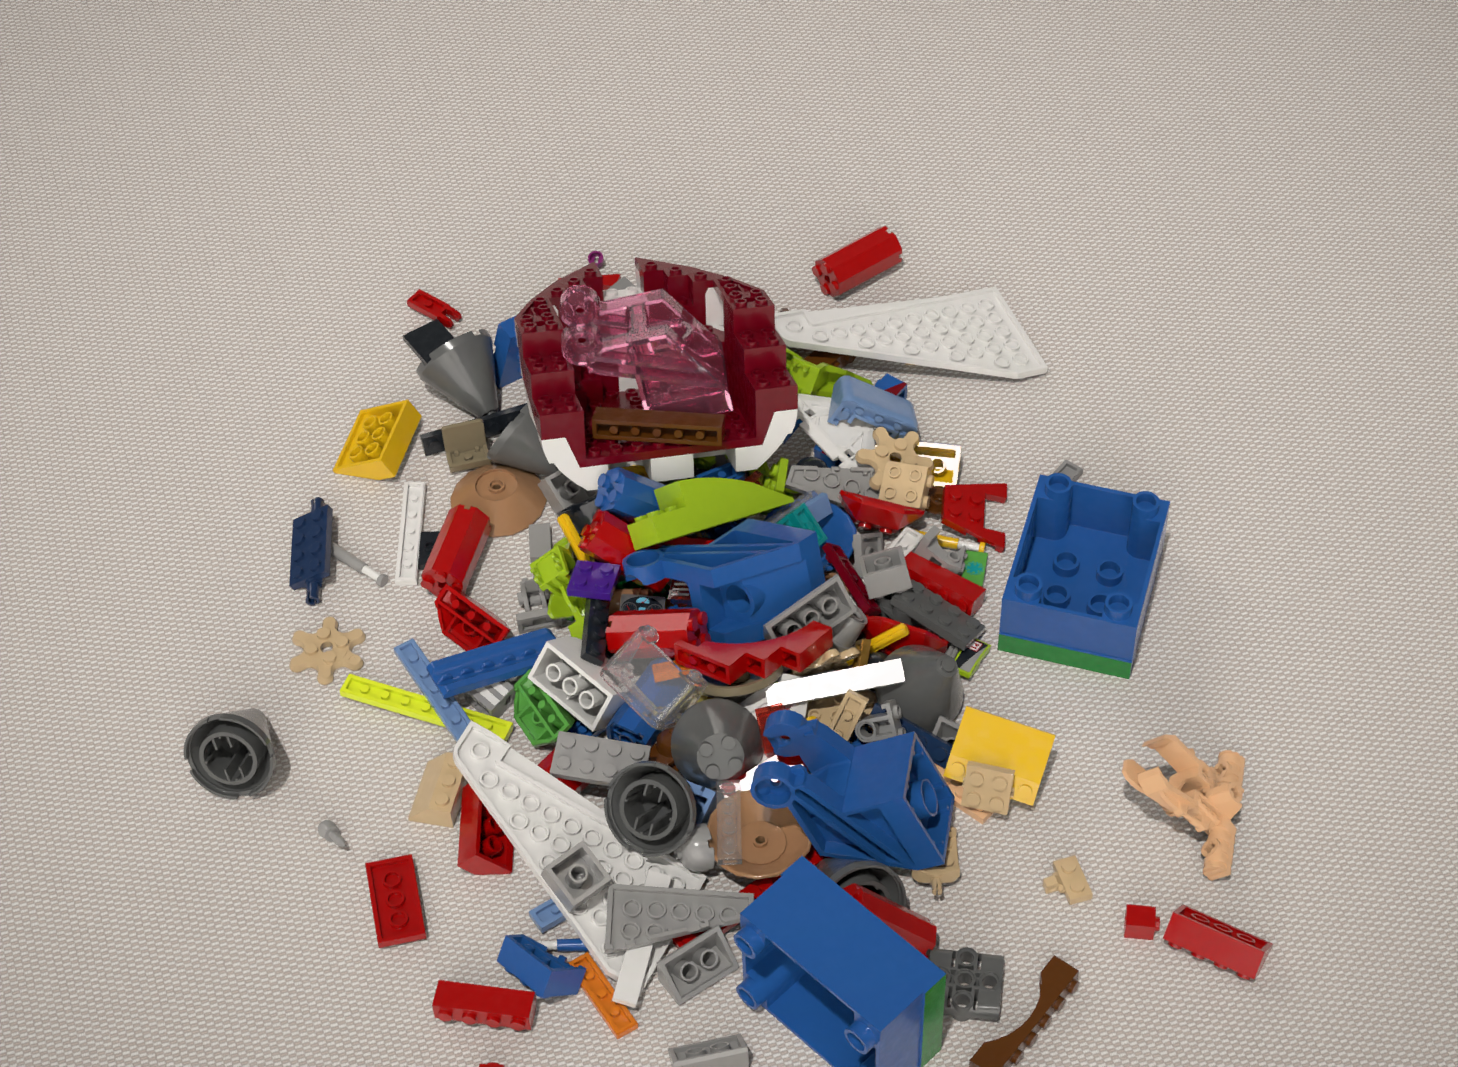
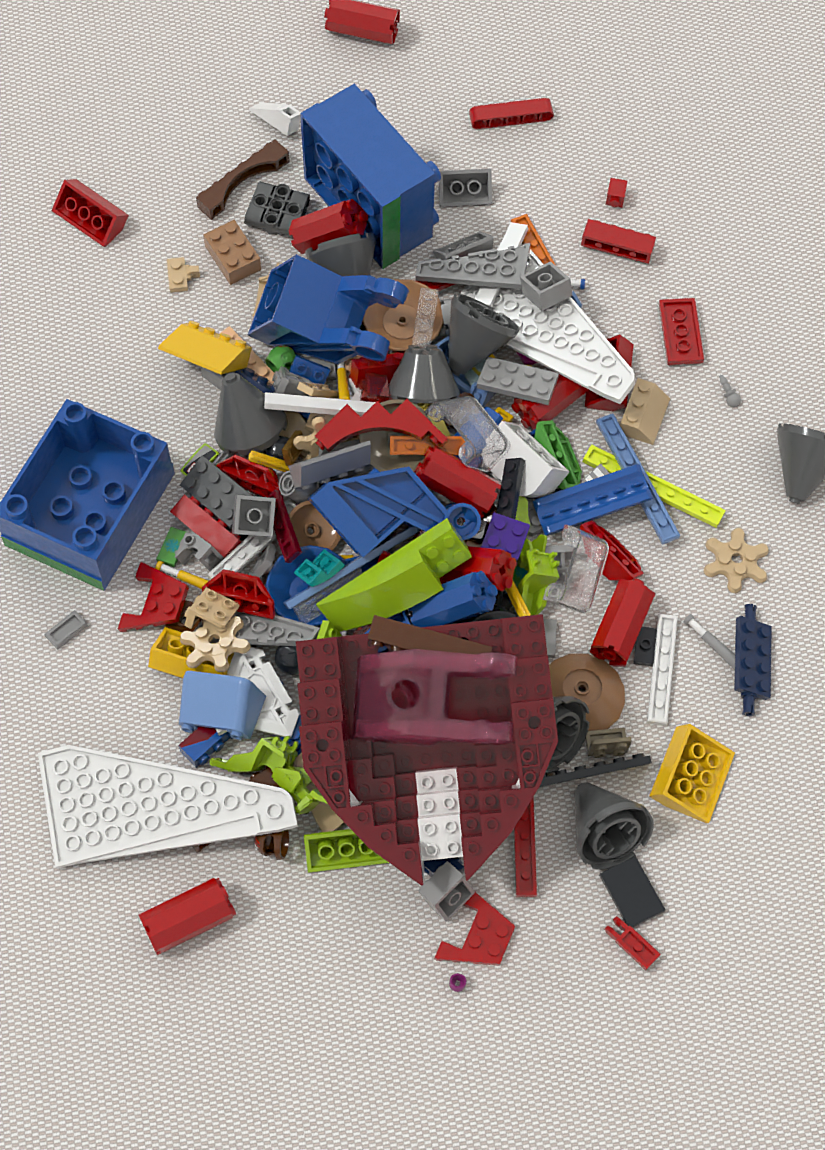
camera: 175 degrees left, 15 degrees up
(506, 354) = (555, 843): blue wedge -> none
(508, 578) = (583, 571): none -> clear windscreen
(538, 968) = (577, 256): blue wedge -> none
(987, 787) = (226, 326): tan plate -> none
(1007, 911) = (232, 252): none -> medium nougat brick
(1140, 922) = (139, 232): red brick -> none
(1198, 793) = (65, 292): light nougat piece -> none

